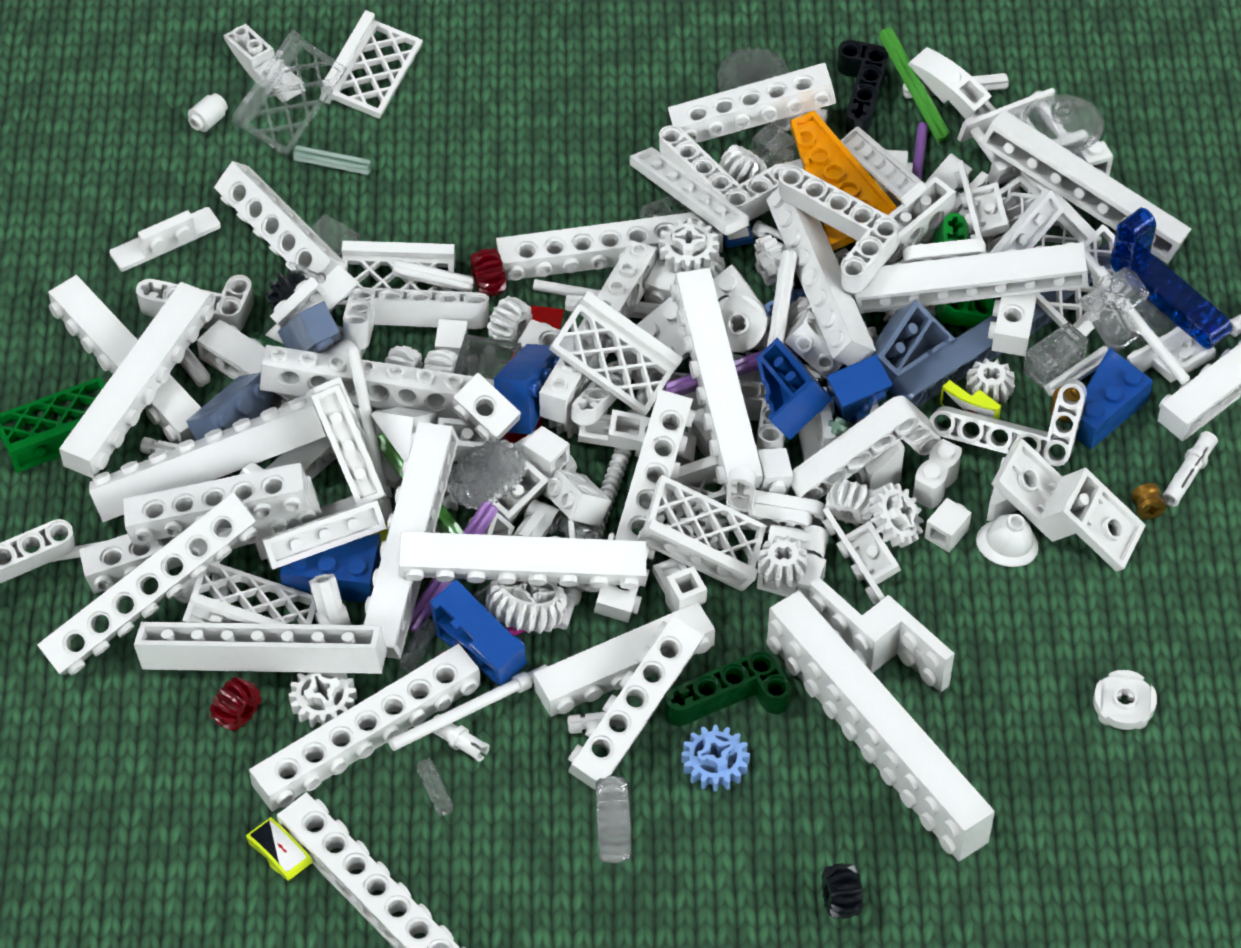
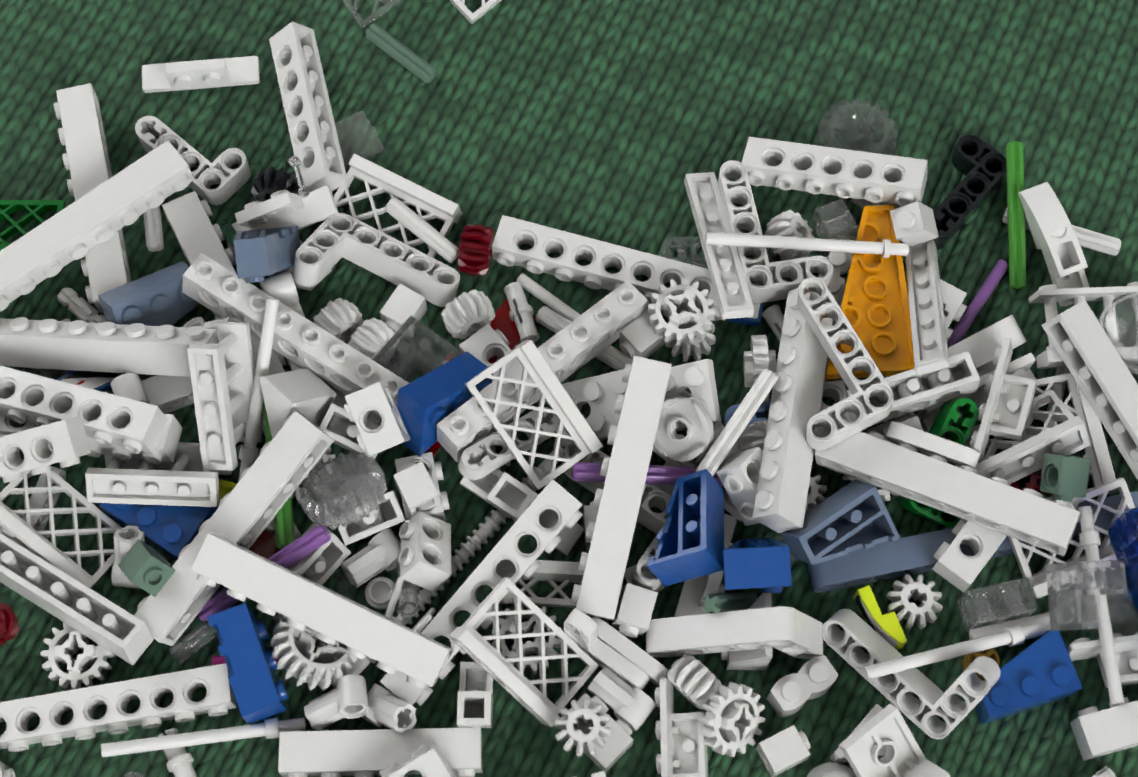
camera: 25 degrees right, 15 degrees up
(353, 595) = (146, 568): none -> sand green brick
(540, 297) = (521, 312): none -> white pin
(576, 626) = (345, 701): none -> white piece
(609, 624) = (389, 710): none -> white piece
(825, 140) = (884, 248): none -> white bar
(838, 116) = (914, 223): none -> white brick
(1056, 230) = (1064, 476): none -> sand green brick
(1077, 372) = (1010, 636): none -> white bar

